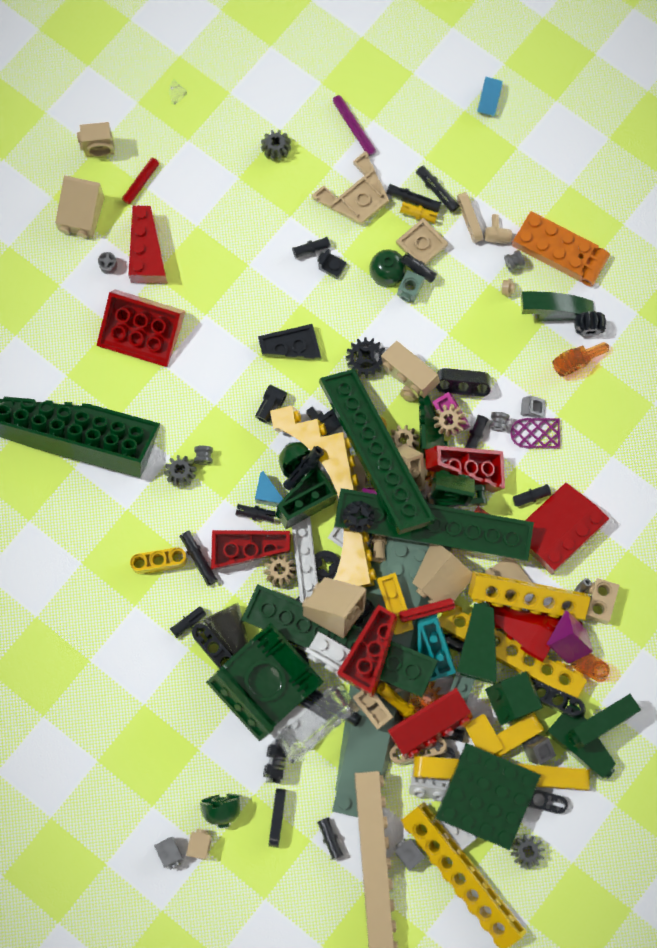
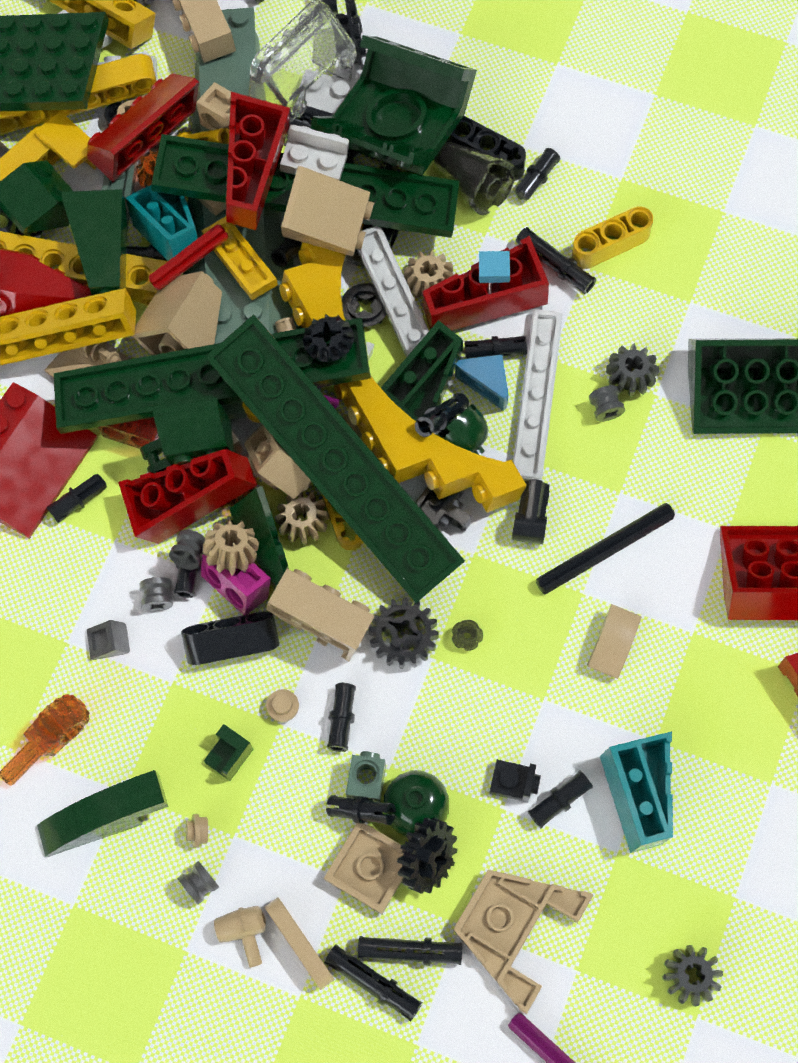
camera: 165 degrees right, 5 degrees down
(235, 373) = (605, 548): none -> black axle
(240, 477) = (537, 393): none -> white tile
(241, 549) = (494, 266): none -> medium azure tile
(250, 318) = (614, 641): none -> tan slope
(267, 237) = (641, 789): none -> teal wedge
(291, 343) = (533, 622): black wing -> none
(330, 343) = (470, 627): none -> clear smoke plate
(390, 234) = (427, 855): none -> black gear
(414, 323) = (341, 717): none -> black pin
(418, 212) = (393, 924): yellow pin -> none
(444, 340) = (282, 705): none -> tan plate
(474, 433) = (188, 549): none -> dark grey wheel
(480, 323) = (228, 752): none -> dark green panel
(531, 420) = (93, 611): magenta window -> none
(561, 249) = (122, 933): orange hinge -> none
(590, 323) = (37, 801): black gear -> none

